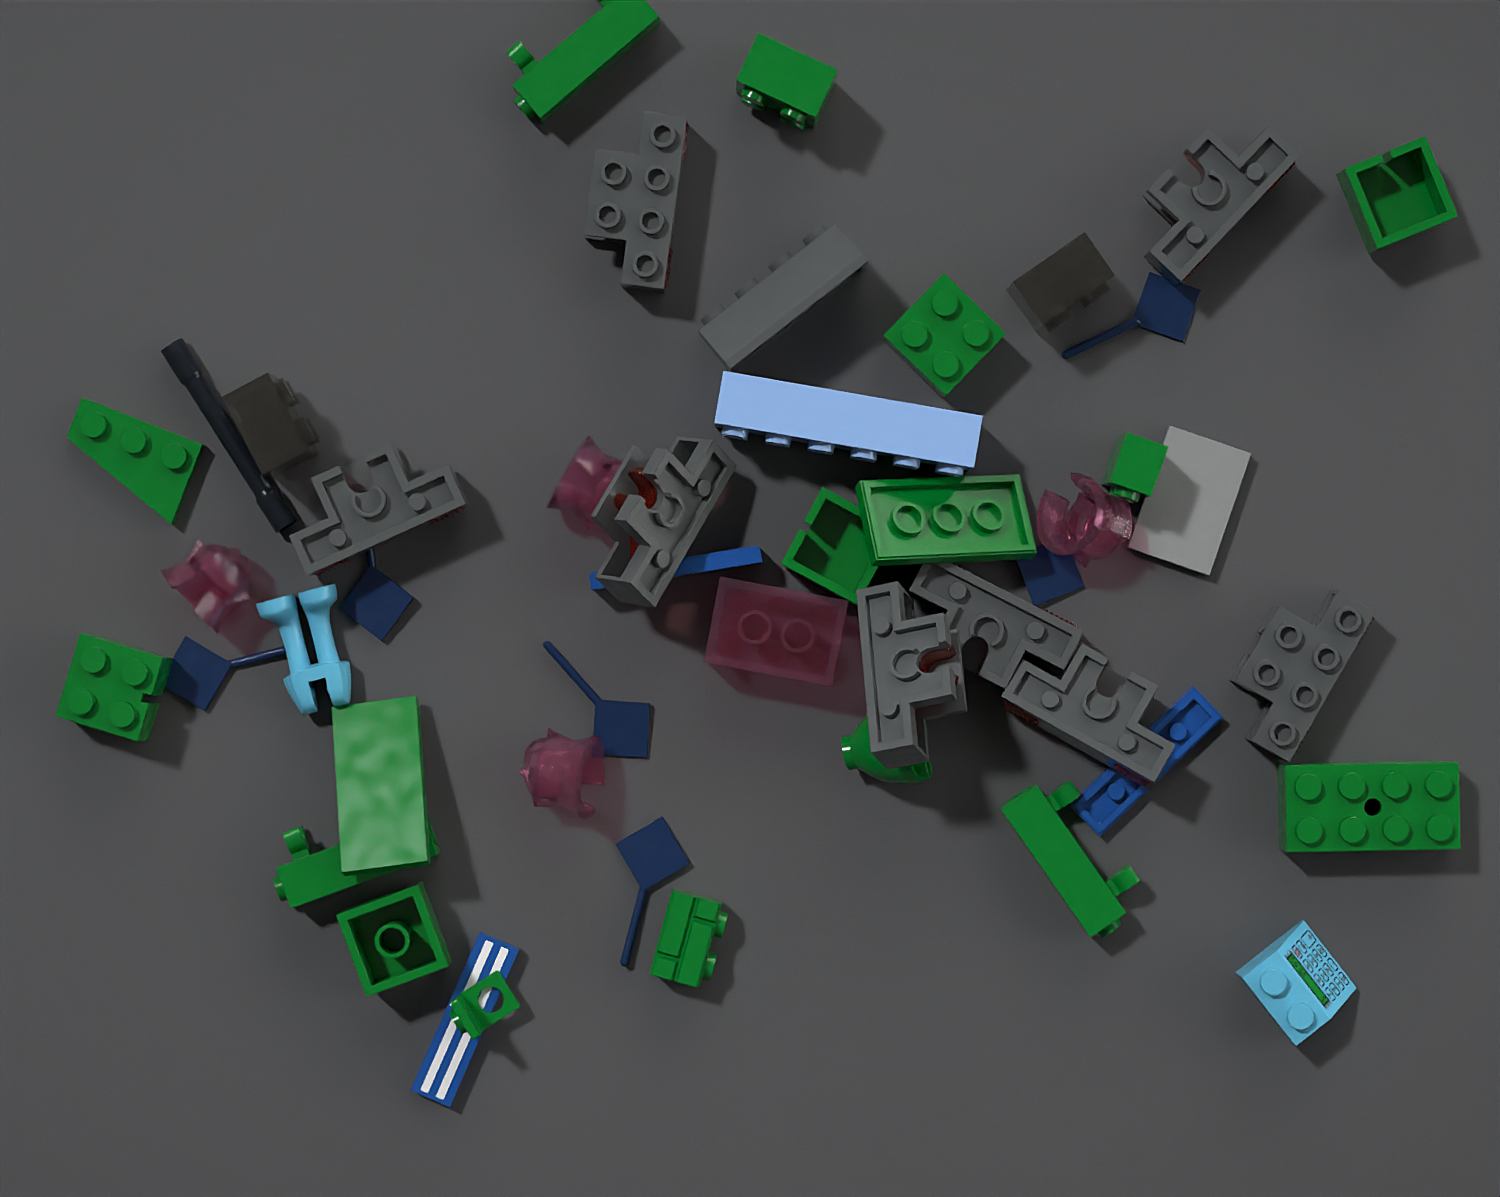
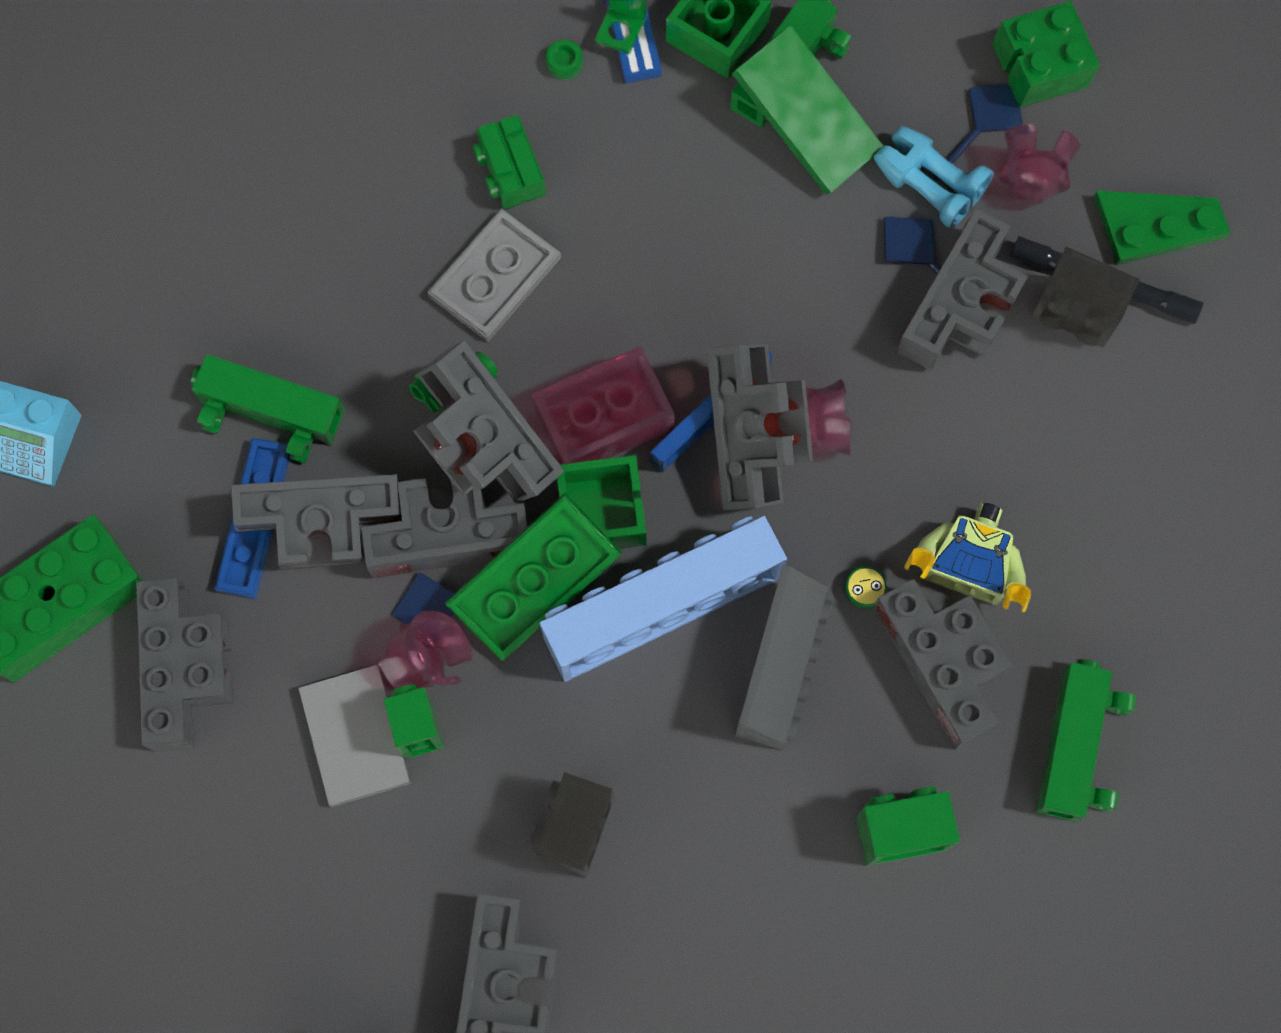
camera: 145 degrees right, 15 degrees down
(549, 267) = (974, 559): none -> torso
(557, 768) = (694, 206): clear pink helmet -> none
(559, 1011) = (564, 59): none -> green tile
(619, 724) = (669, 275): dark blue piece -> none
(651, 857) = (576, 203): dark blue piece -> none
(659, 313) = (865, 587): none -> tile
(776, 840) = (494, 275): none -> light grey tile
(943, 335) = (636, 721): green brick -> none
(1160, 309) = (482, 868): dark blue piece -> none

